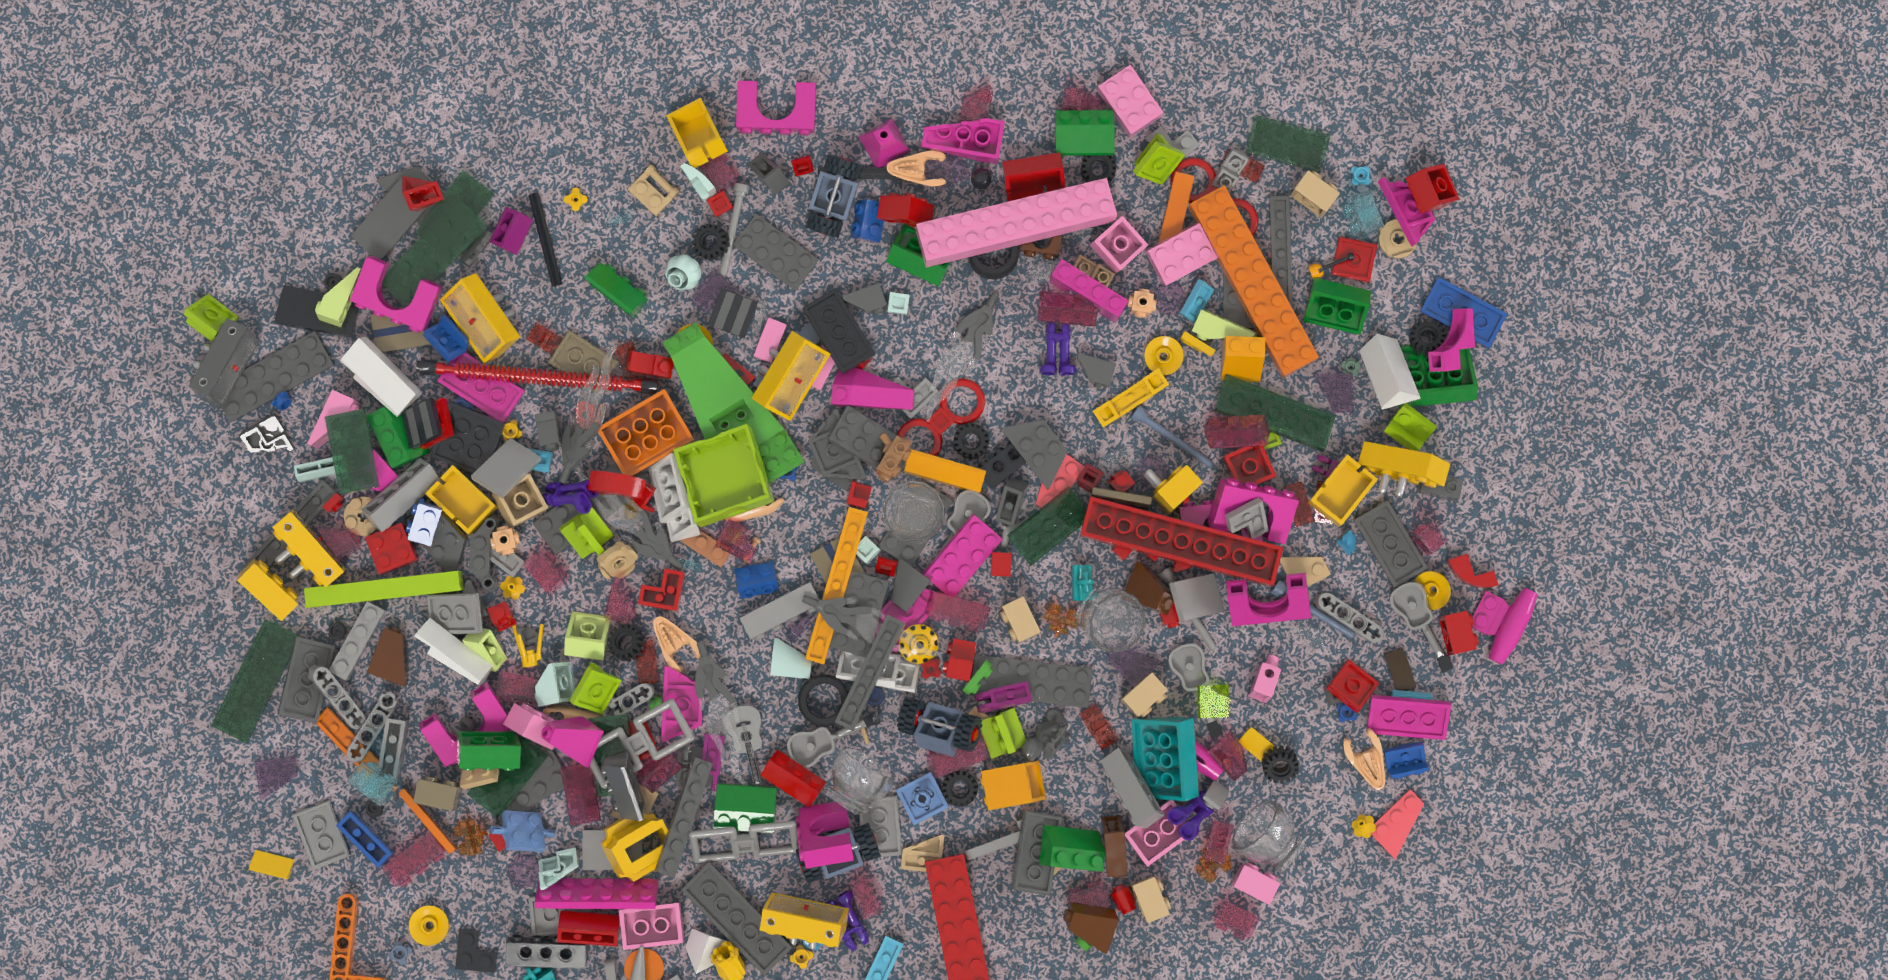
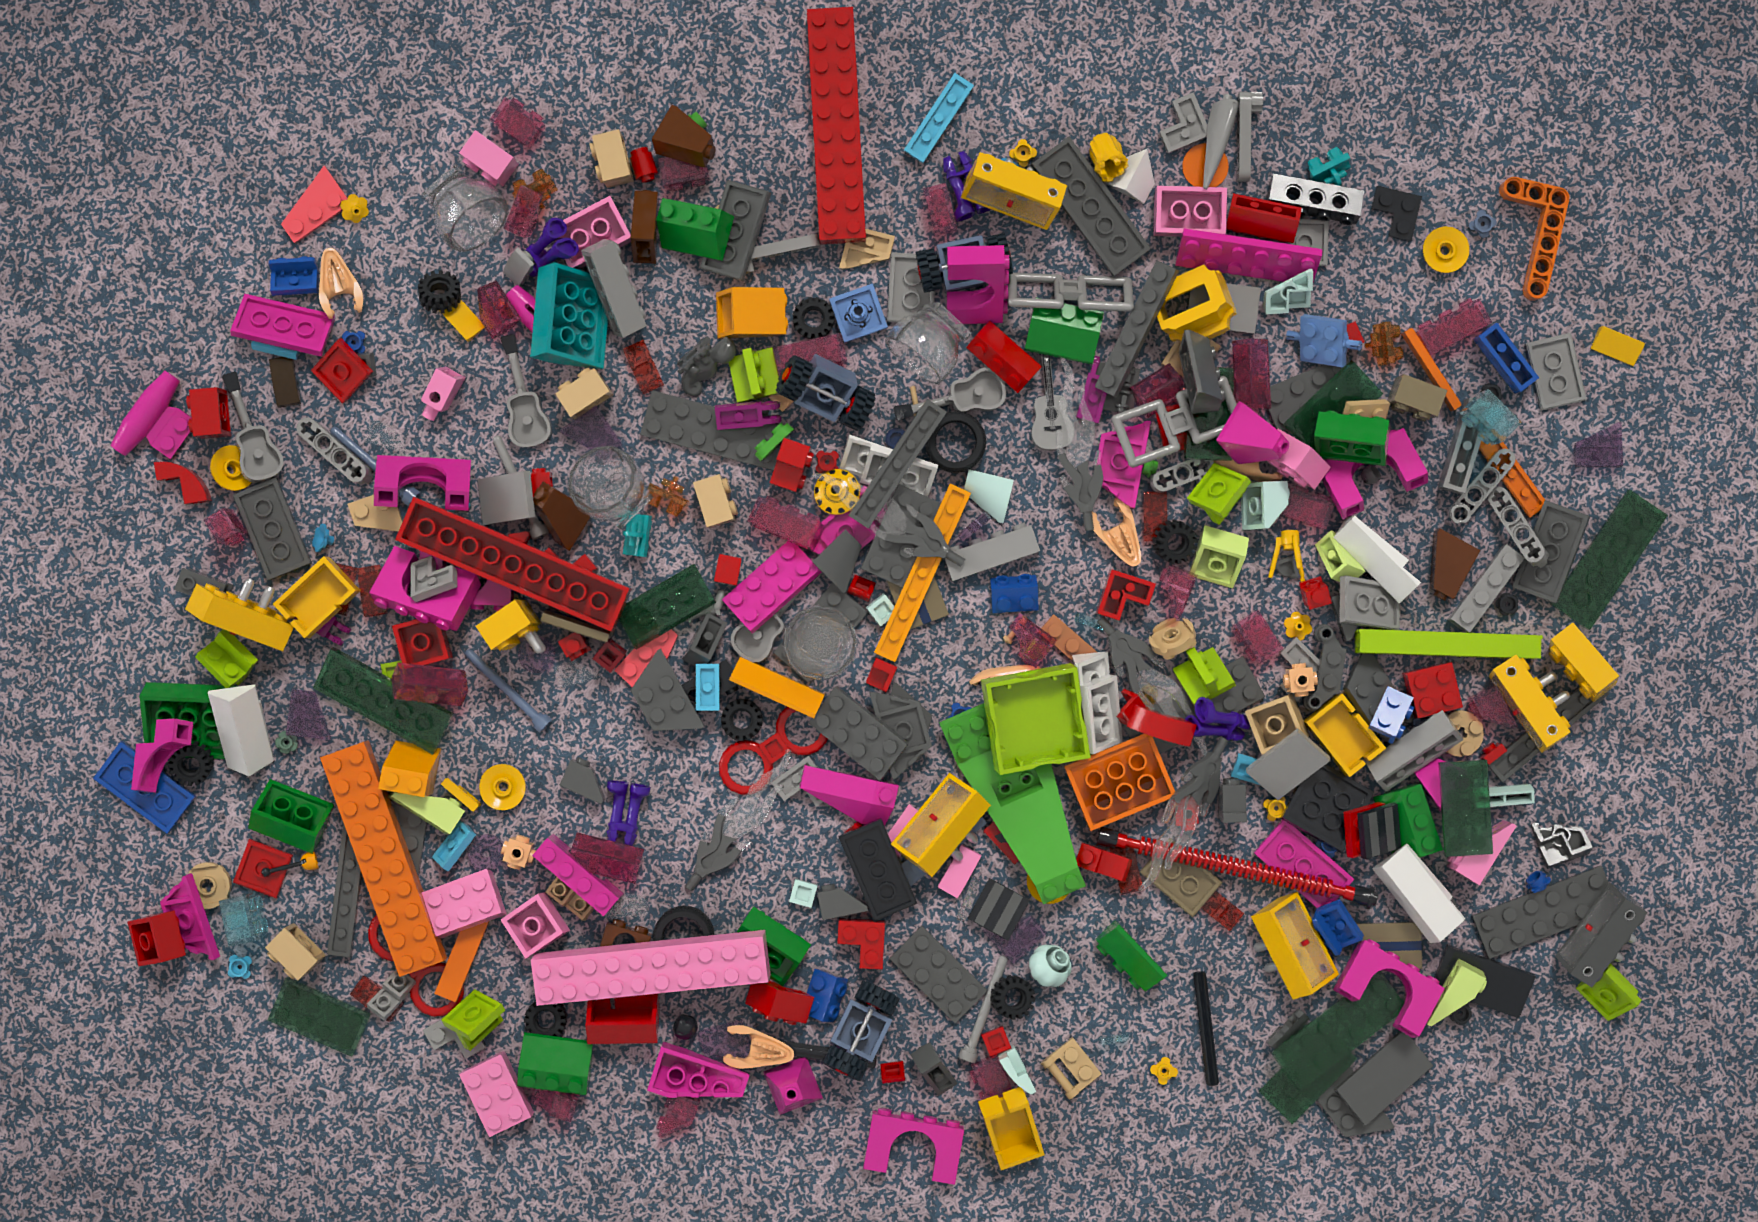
camera: 160 degrees left, 5 degrees up
(420, 193) = (1345, 1103): red slope -> none
(511, 231) = (1242, 1042): magenta brick -> none
(515, 868) = (1338, 292): clear purple piece -> none
(839, 276) = (868, 935): none -> red brick
(895, 453) = (831, 716): medium nougat brick -> none
(1003, 462) = (707, 687): none -> medium azure plate
(1131, 398) = (548, 742): yellow slope -> none
(1213, 701) = (505, 376): clear neon green piece -> none

